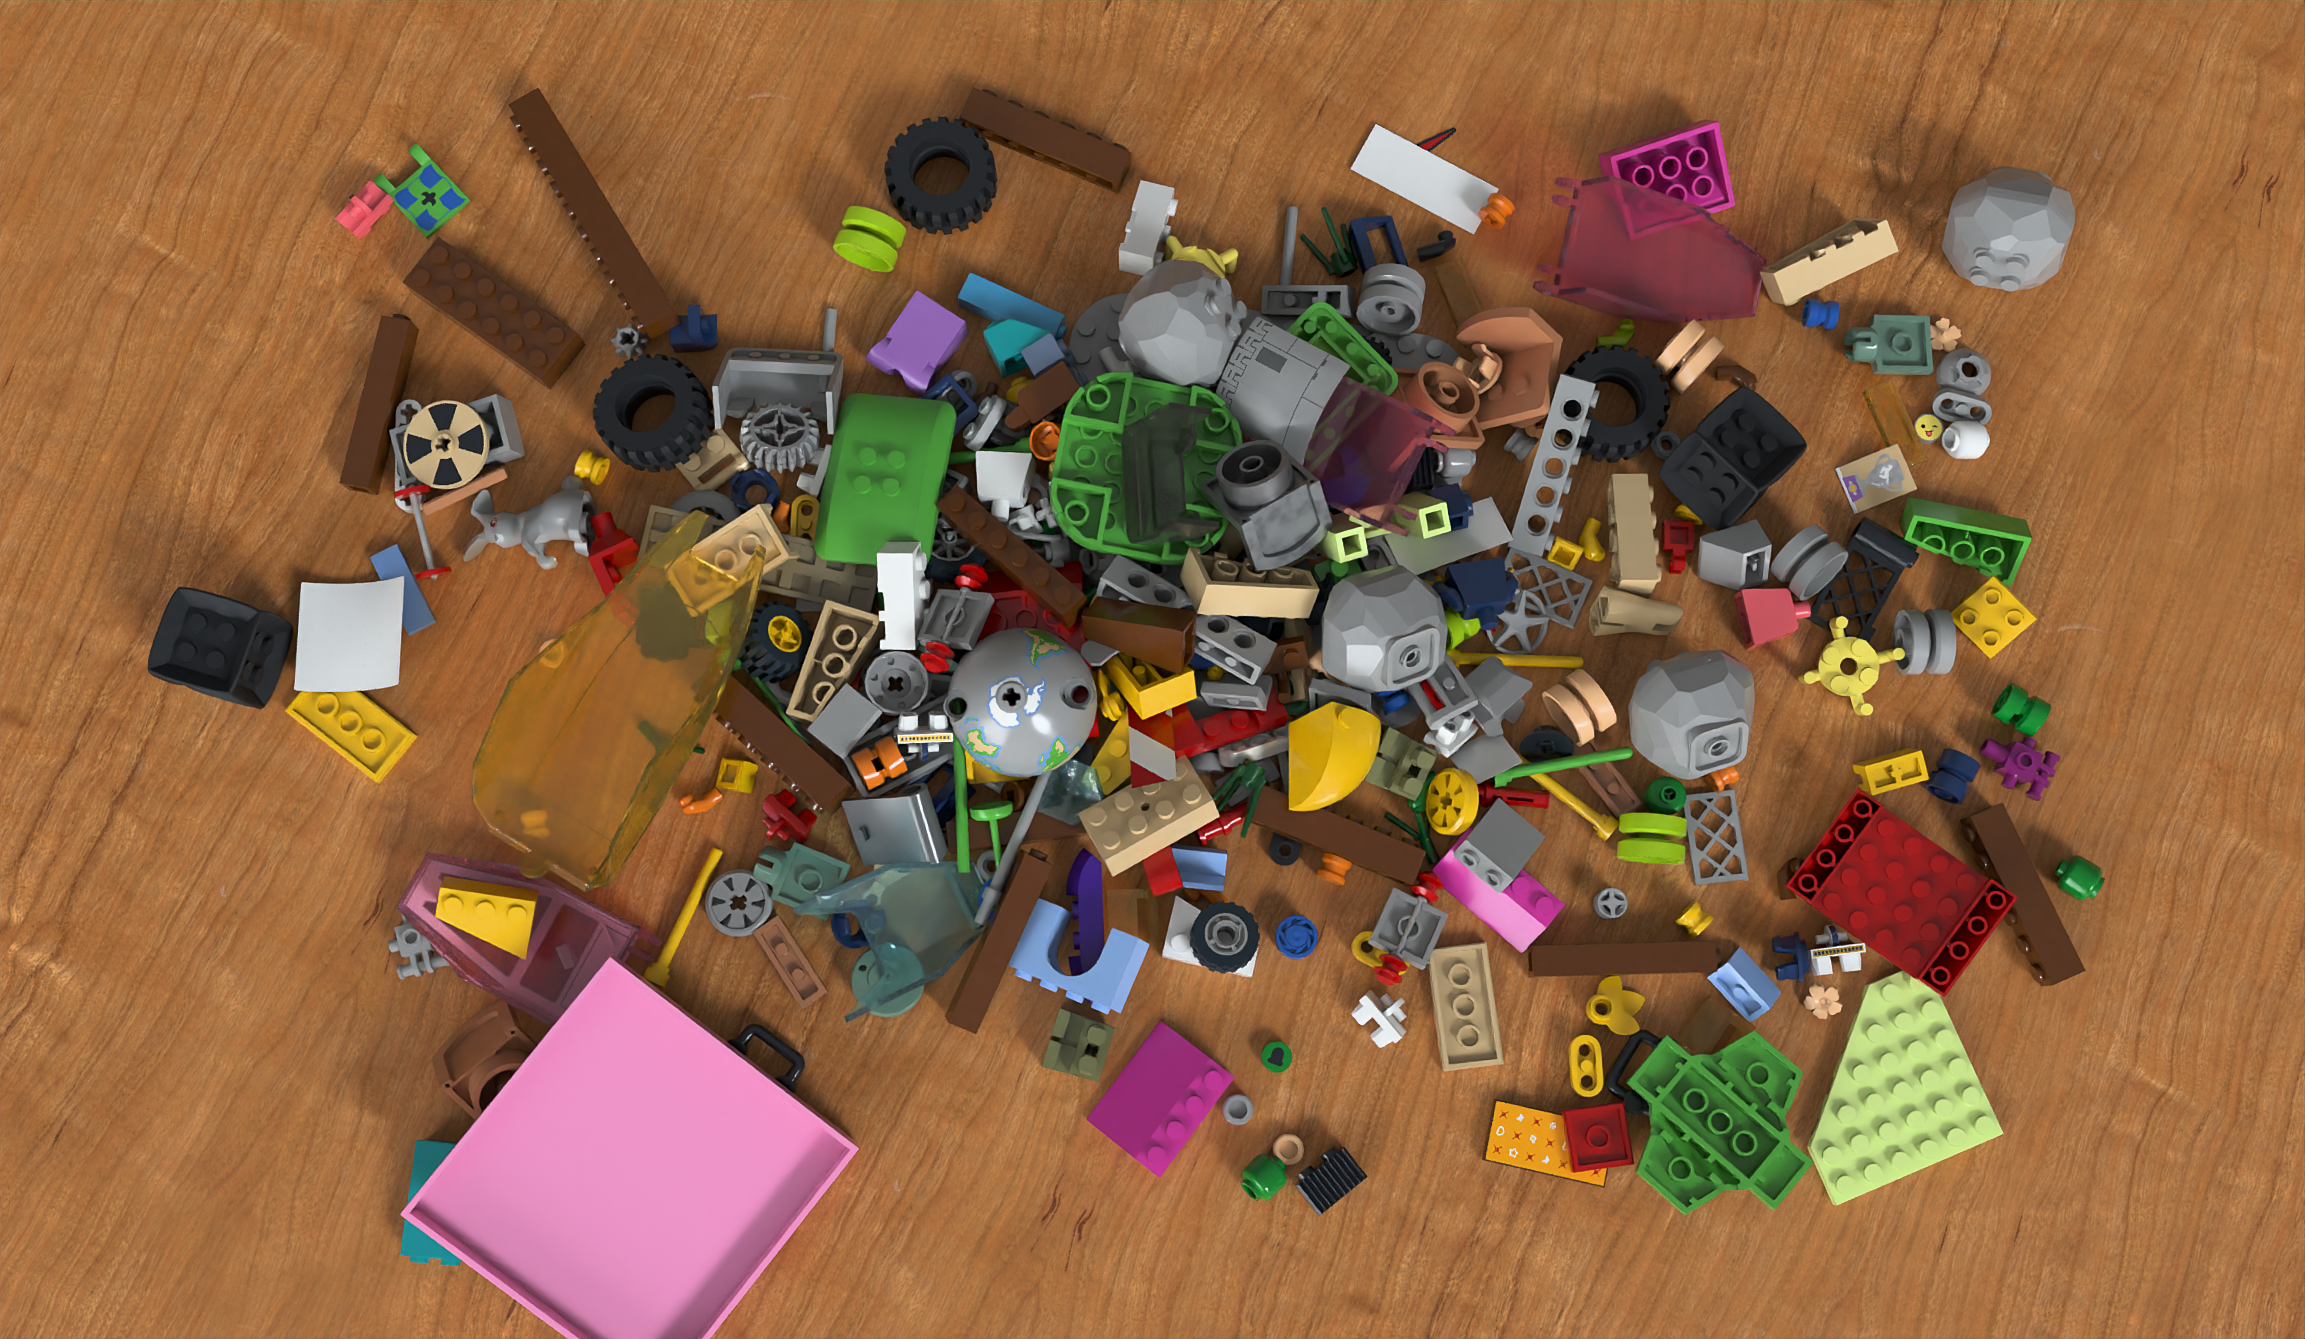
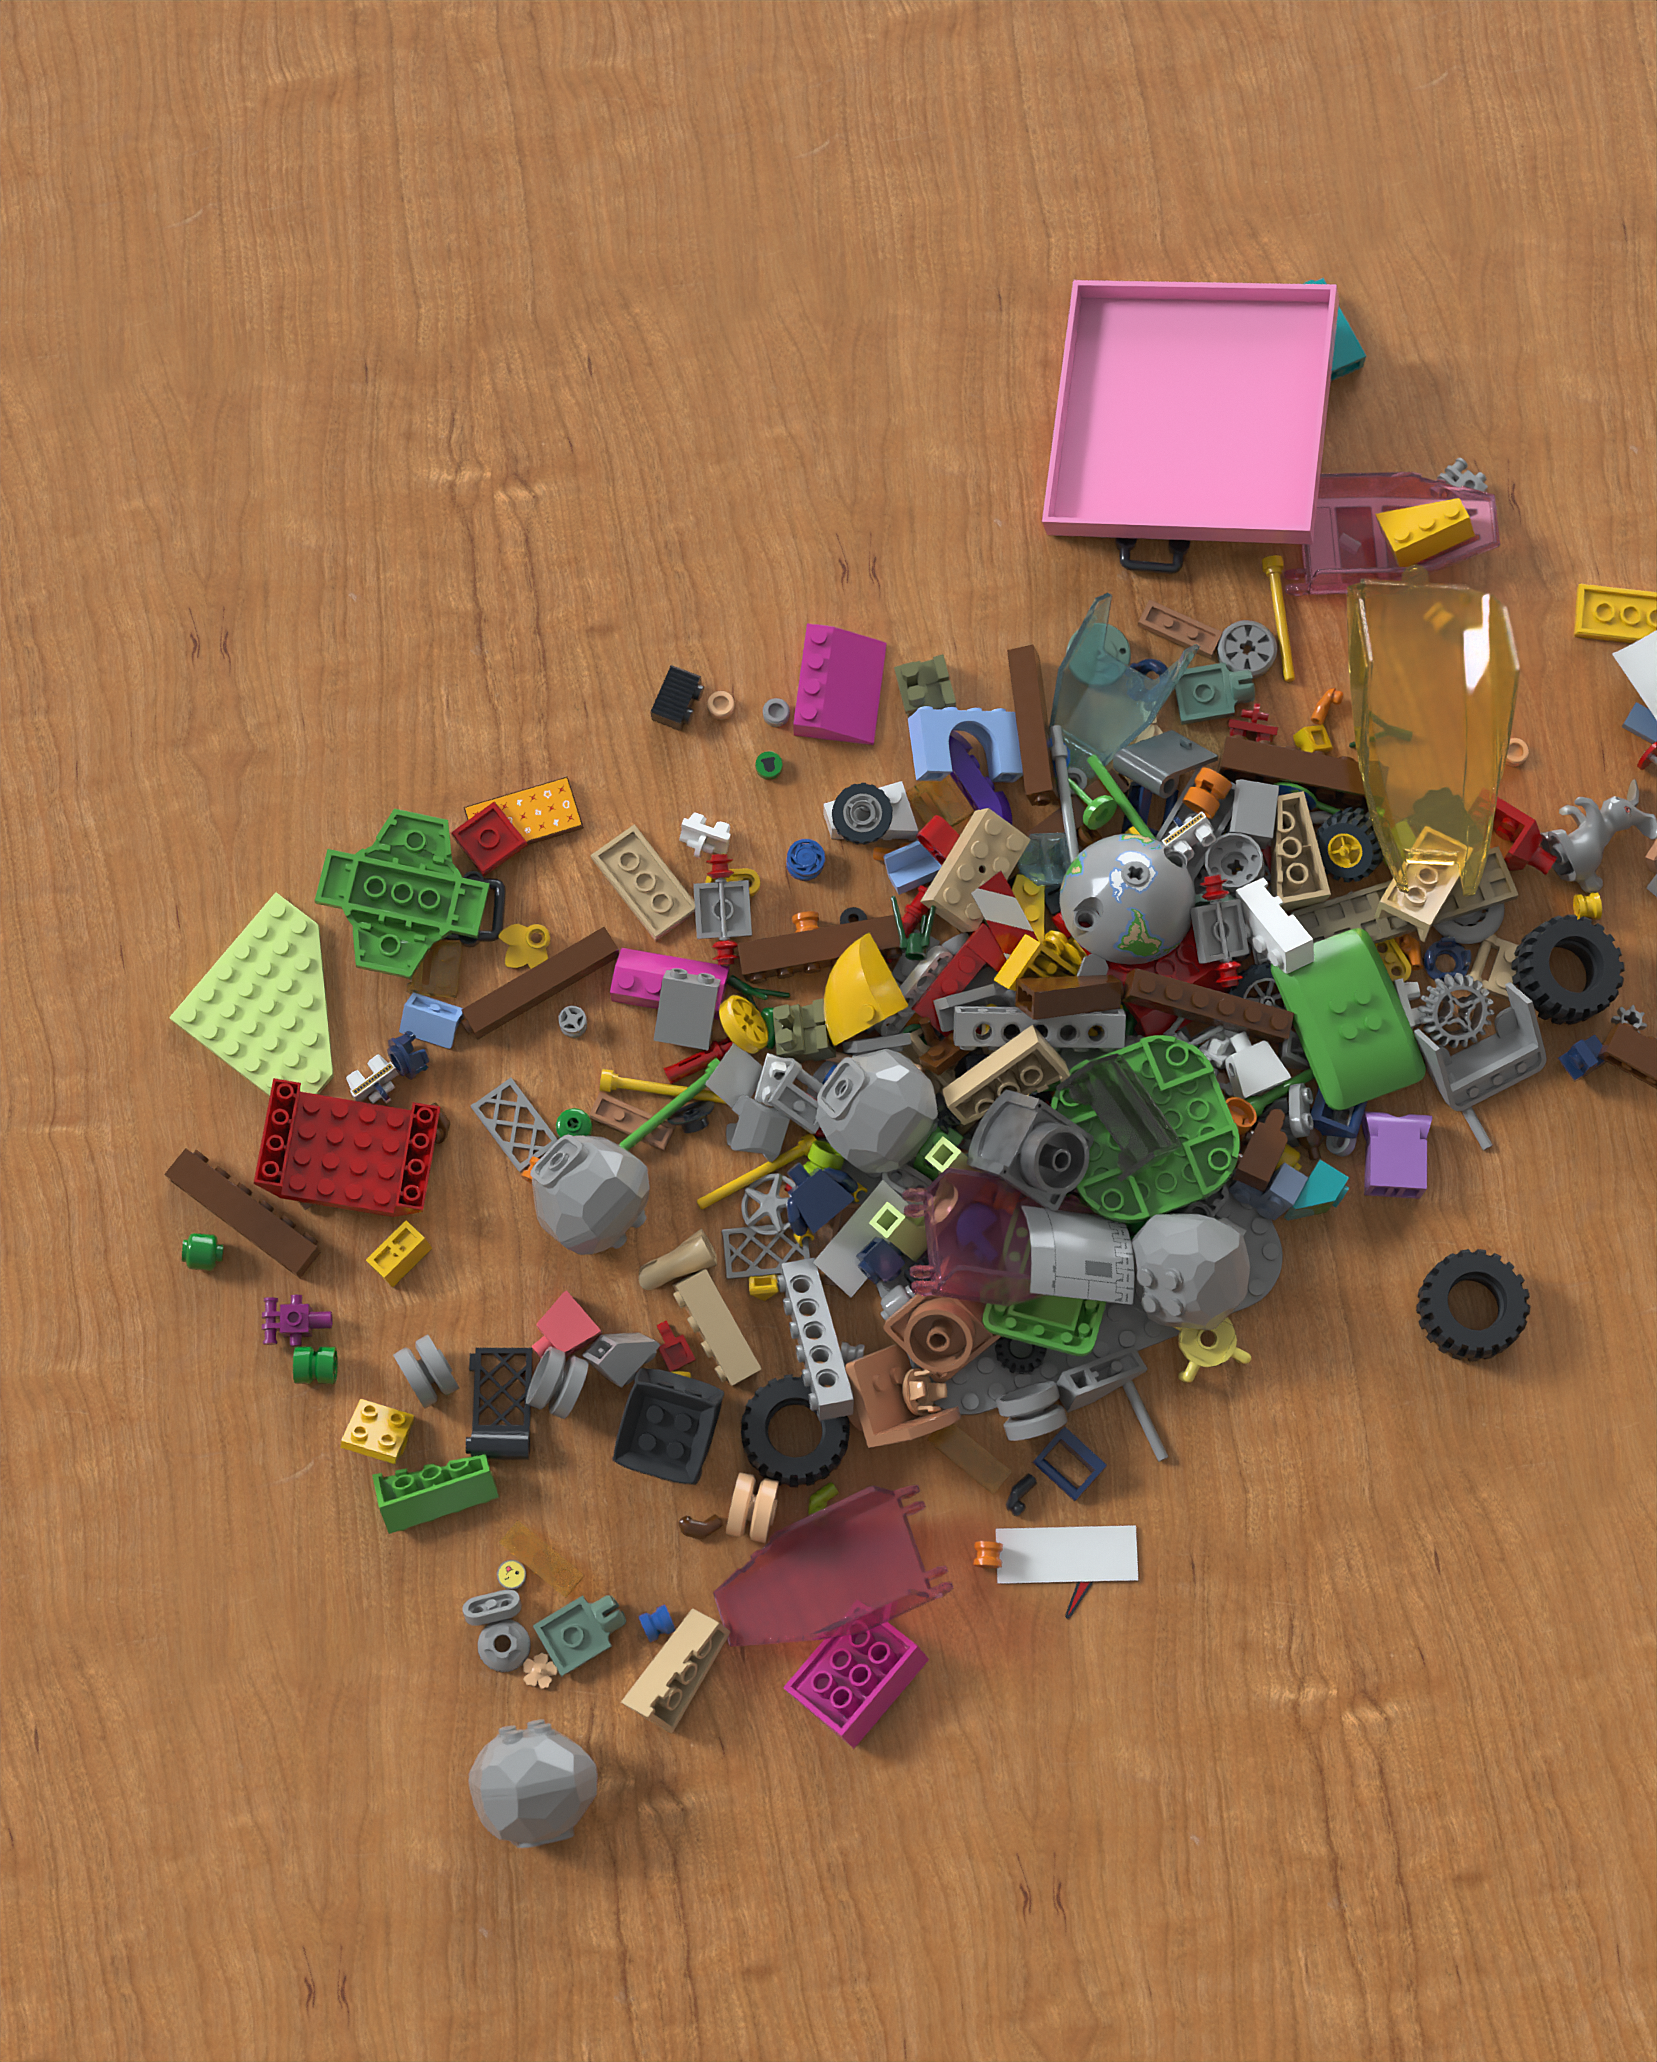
camera: 150 degrees right, 5 degrees down
(482, 1057) = (1358, 432): nougat piece -> none
(869, 239) = (1494, 1213): lime wheel -> none
(999, 303) = (1339, 1227): dark azure brick -> none
(1046, 139) = (1408, 1393): reddish brown brick -> none
(1147, 228) = (1273, 1362): white wedge -> none
(1263, 1177) = (728, 672): green head -> none
(1343, 260) = (1094, 1431): dark green plant -> none
(1579, 707) = (682, 1155): light nougat wheel -> none
(1586, 1065) = (526, 889): yellow plate -> none
(1588, 540) = (748, 1307): yellow arm -> none
(1652, 838) = (567, 1082): lime wheel -> none
(1664, 436) = (728, 1421): dark grey plate -> none
(1694, 919) = (499, 1046): yellow wheel -> none
(1822, 1000) = (363, 1040): light nougat plant -> none
(1866, 663) = (477, 1307): light yellow plate -> none
(1876, 478) = (534, 1502): sticker -> none
(1953, 775) = (346, 1276): dark blue wheel -> none
(1965, 439) = (474, 1579): white head -> none

